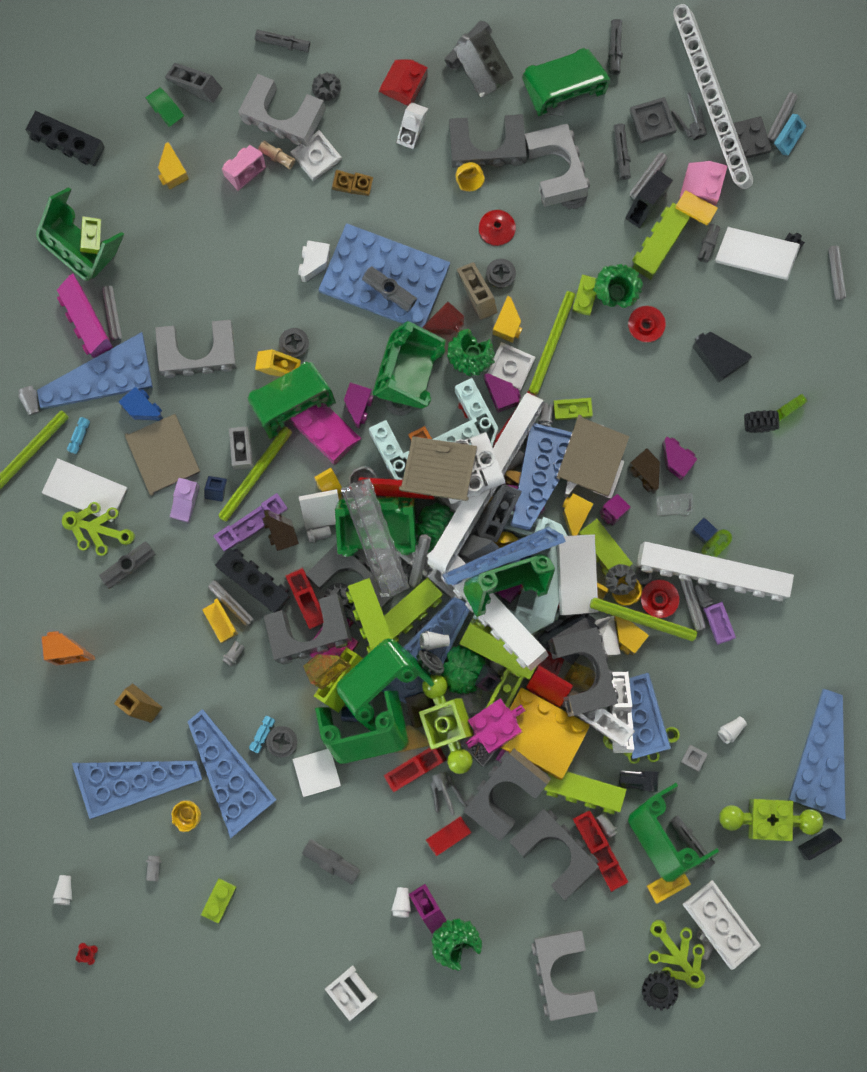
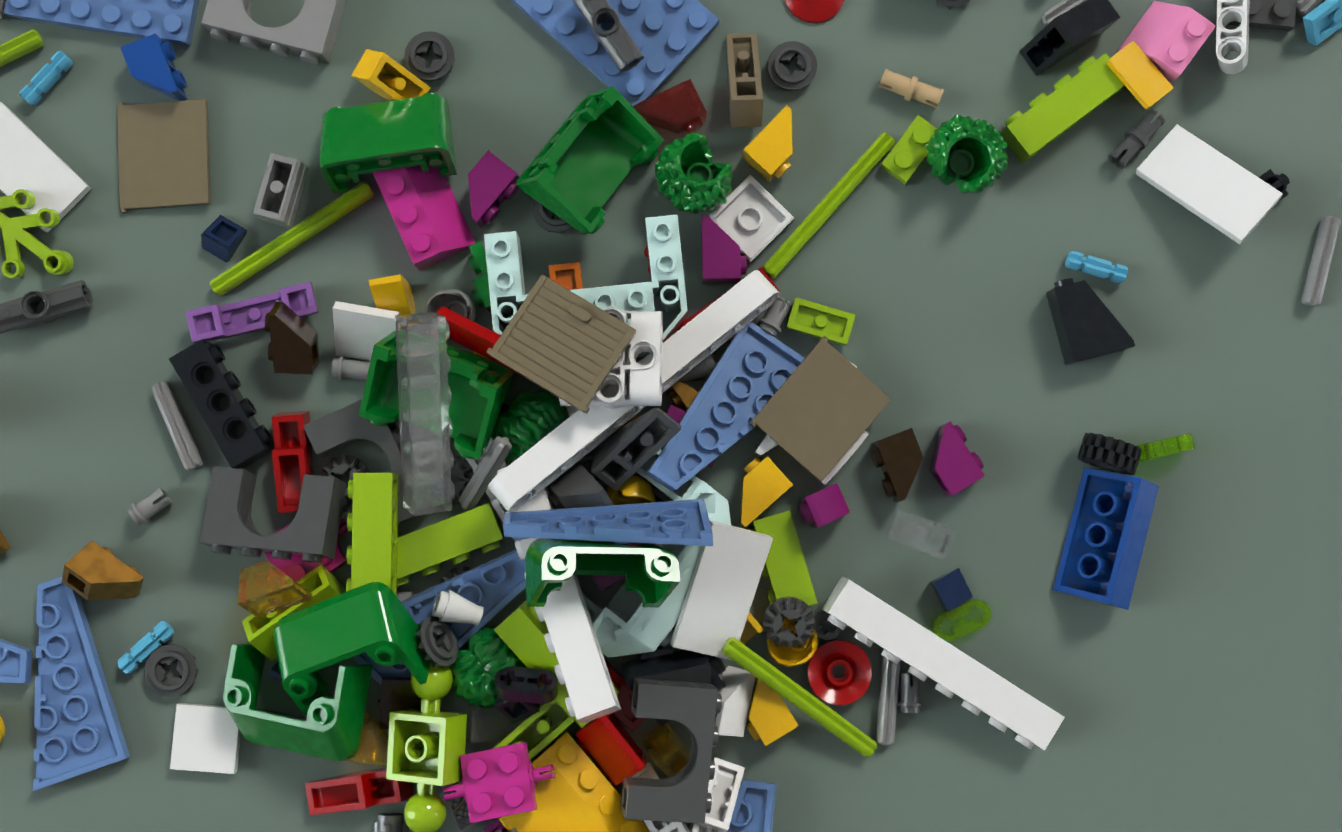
camera: 20 degrees right, 5 degrees up
(184, 499) = (166, 238): lavender arch -> none
(220, 621) = (150, 447): yellow panel -> none
(223, 701) = (100, 575): none -> pearl gold slope
(375, 459) = (479, 264): none -> green slope
(490, 665) = (526, 685): none -> black beam
(572, 261) = (911, 88): none -> tan pin
(652, 317) = (999, 220): red dish -> none
(716, 321) = (1096, 267): none -> medium azure axle
(719, 623) = (918, 746): medium lavender plate -> none
(778, 468) = (1106, 537): none -> blue slope

